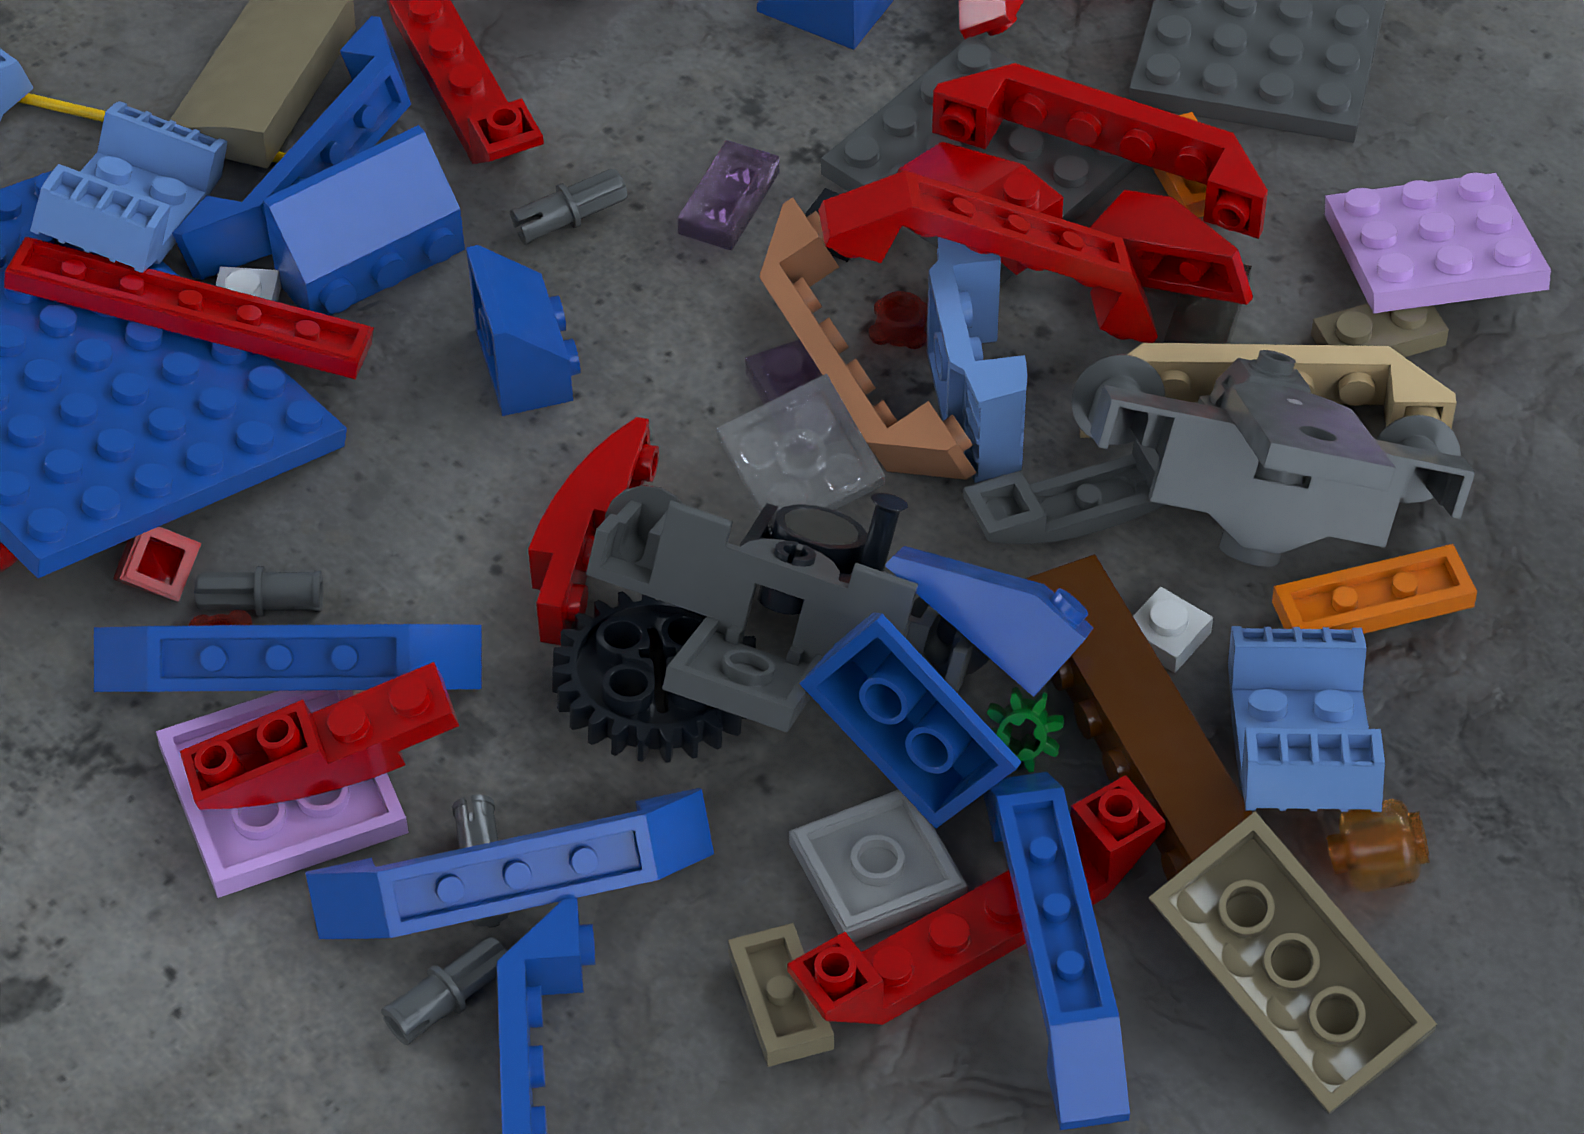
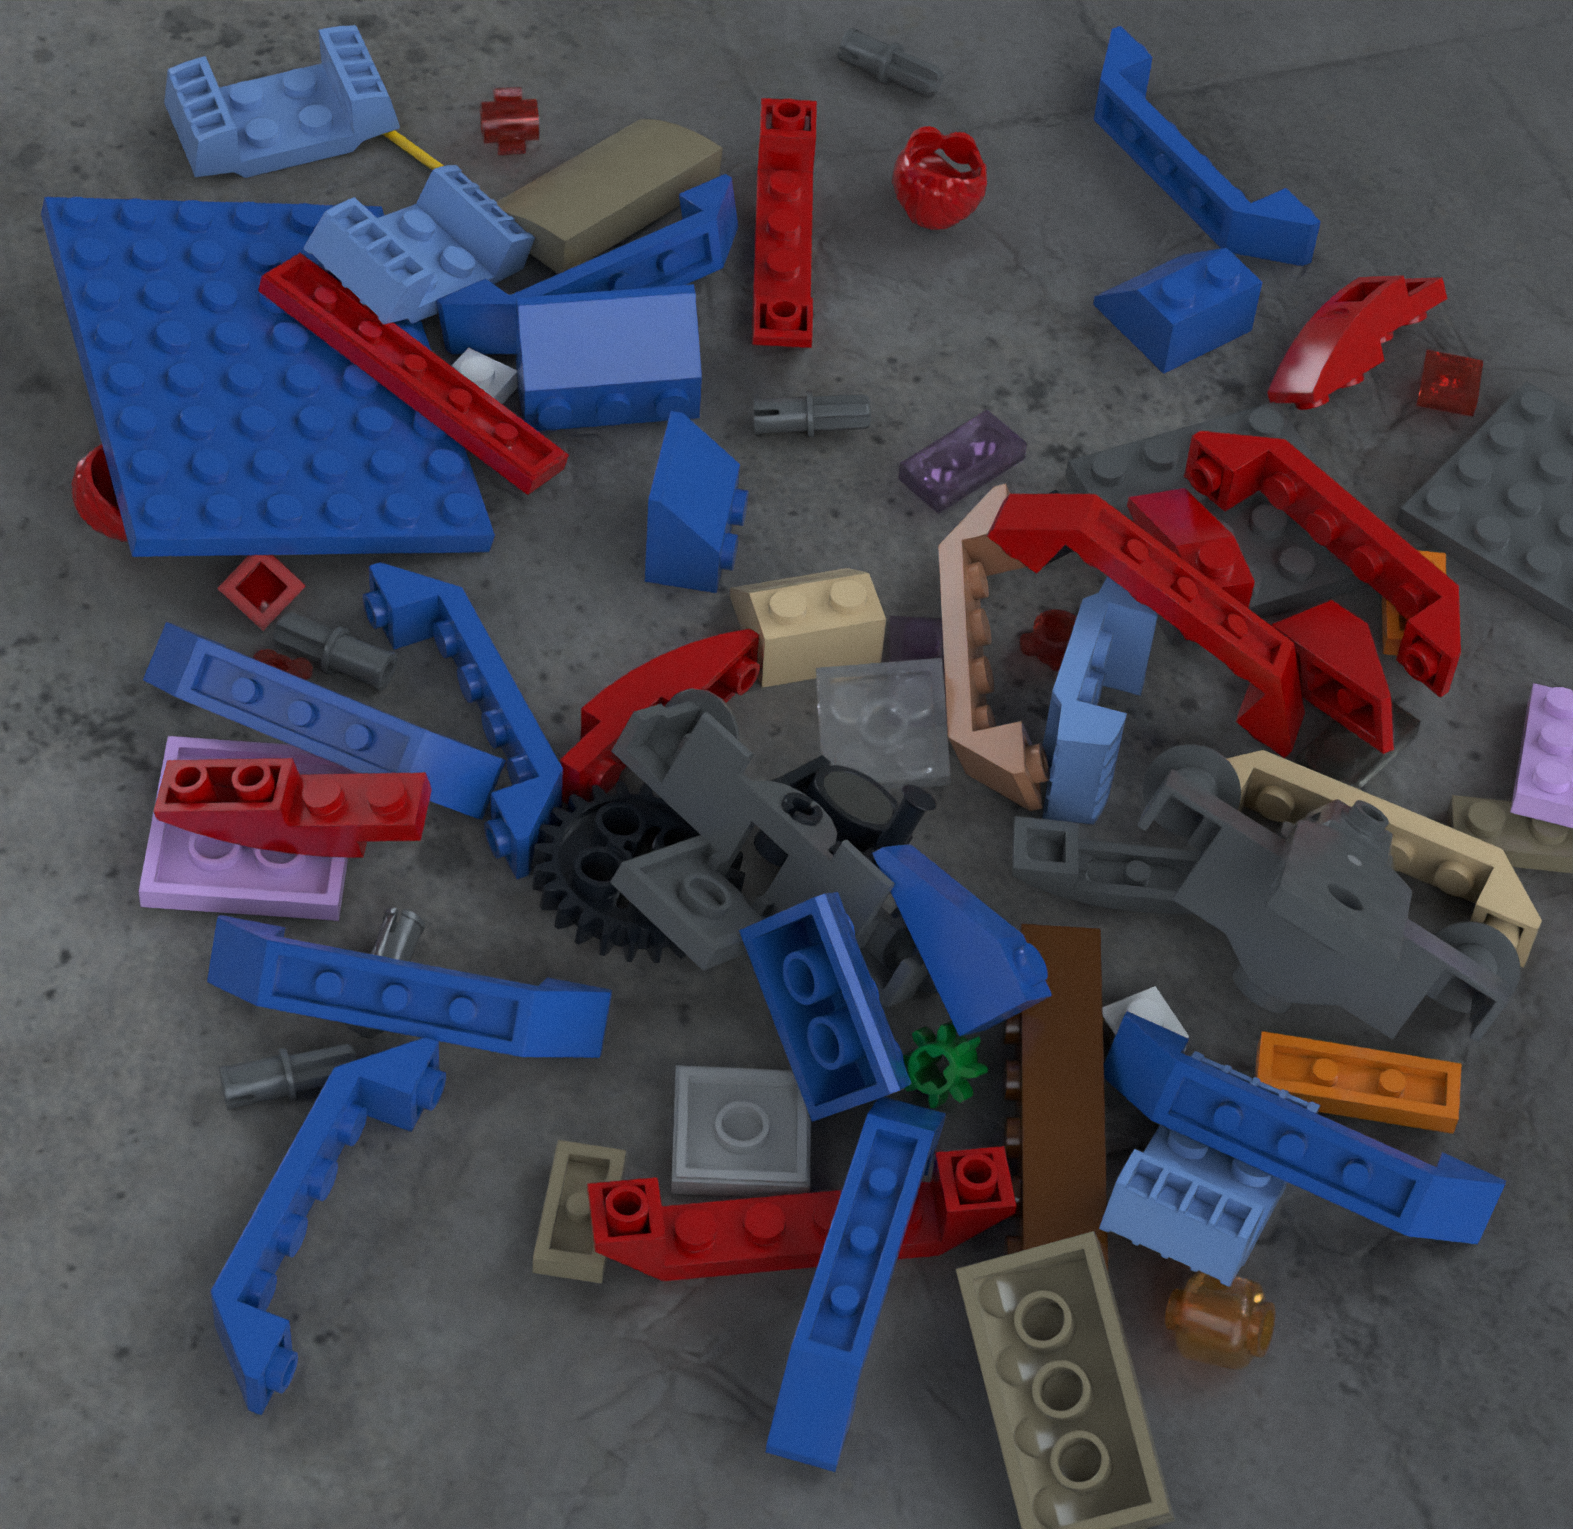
camera: 20 degrees right, 0 degrees up
(136, 43) = (509, 121): none -> clear red gear
(315, 520) = (422, 607): none -> blue slope
(683, 389) = (812, 623): none -> tan slope
(1355, 667) = (1295, 1143): none -> blue slope

